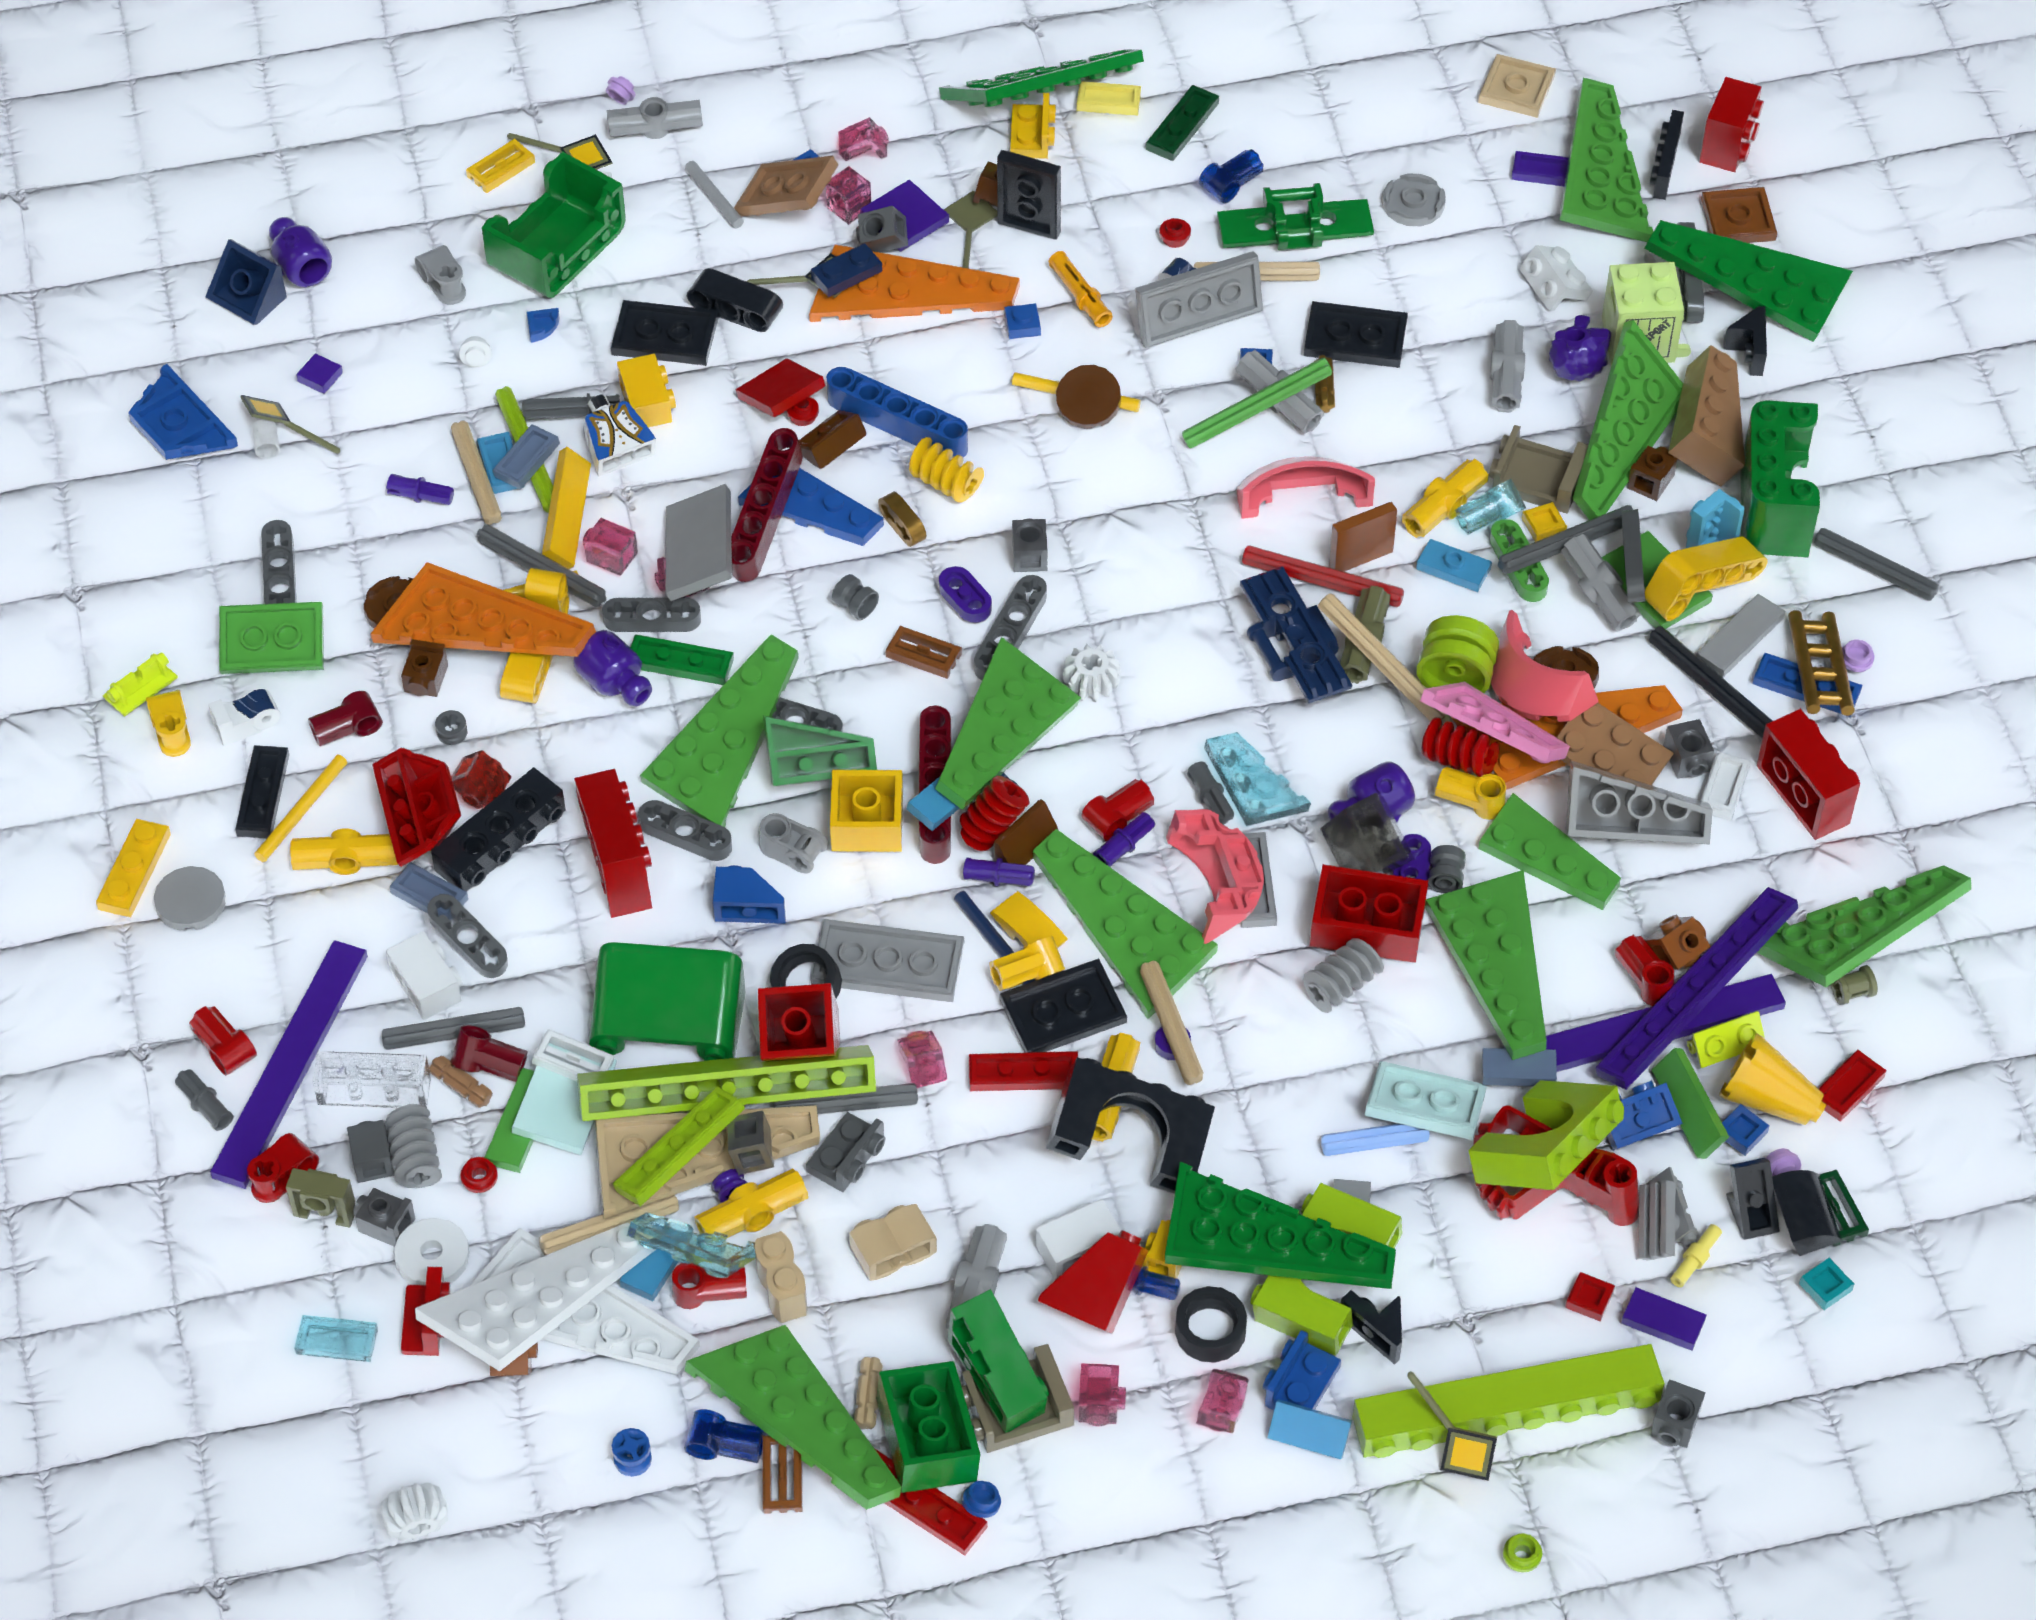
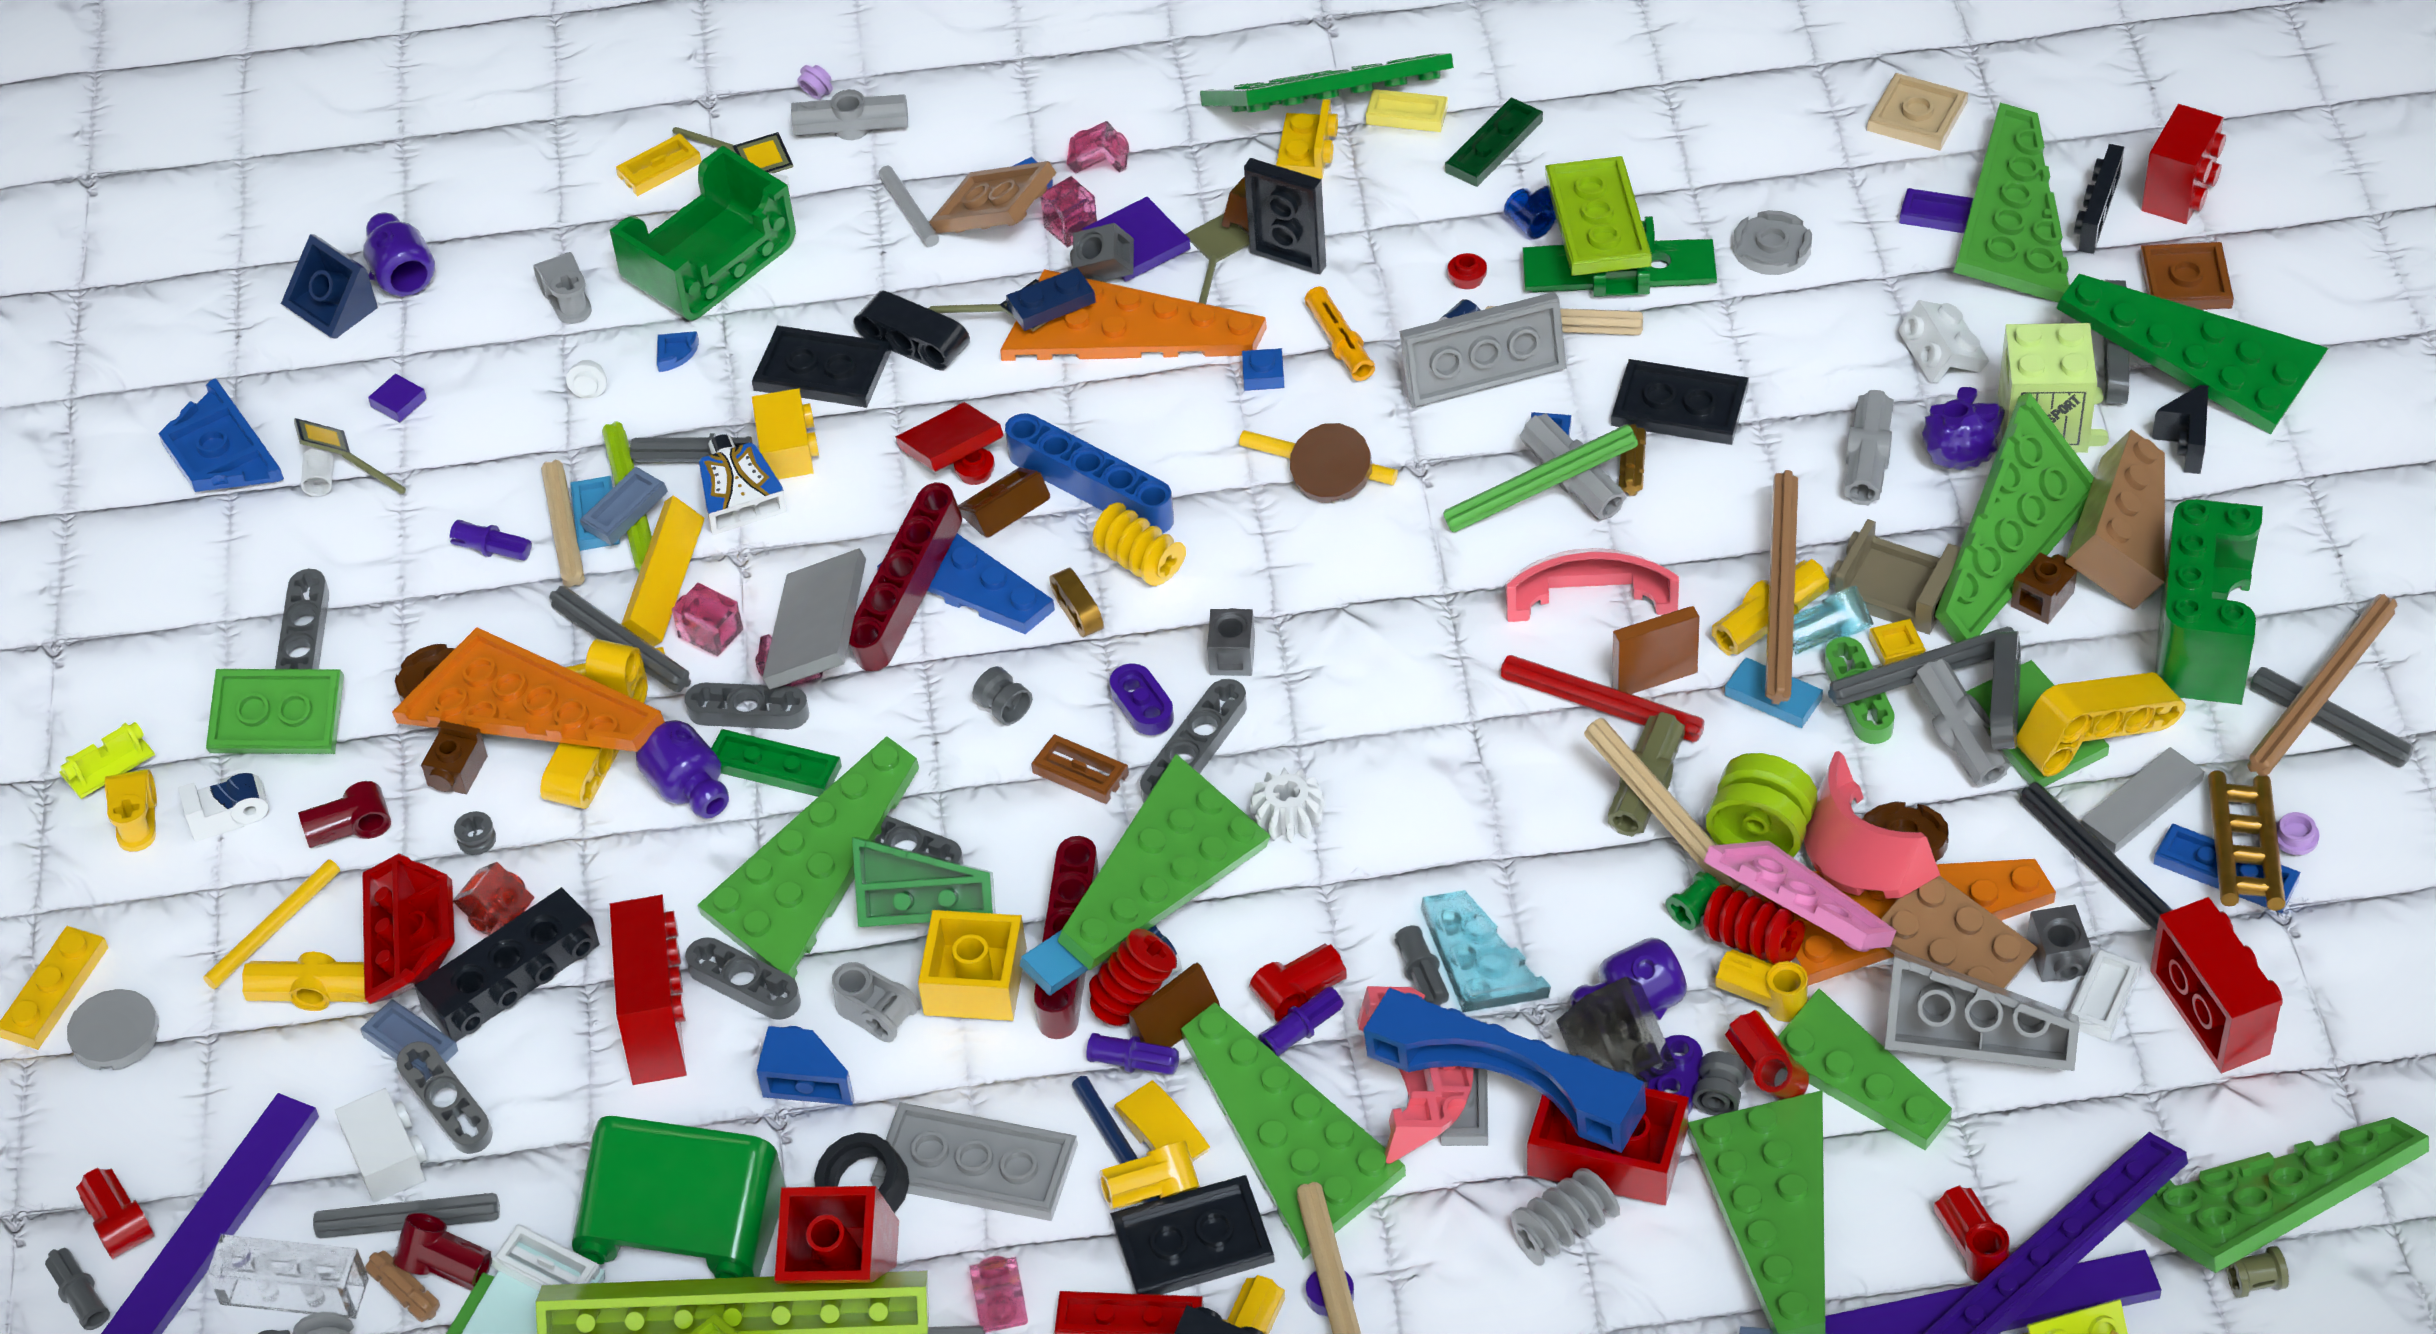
camera: 10 degrees right, 5 degrees down
(262, 791) = (229, 900): black tile -> none
(1224, 845) = (1422, 1035): none -> blue arch
(1277, 184) = (1597, 215): none -> lime tile
(1304, 631) = (1573, 774): dark blue piece -> none
(1412, 731) = (1691, 903): none -> green bush
(1454, 482) = (1781, 588): none -> medium nougat axle
(1479, 846) = (1766, 1056): none -> red piece
(1679, 941) = (2021, 1198): dark orange brick -> none
(1715, 519) = (2118, 648): medium azure bracket -> none
(1869, 540) = (2321, 685): none -> medium nougat axle

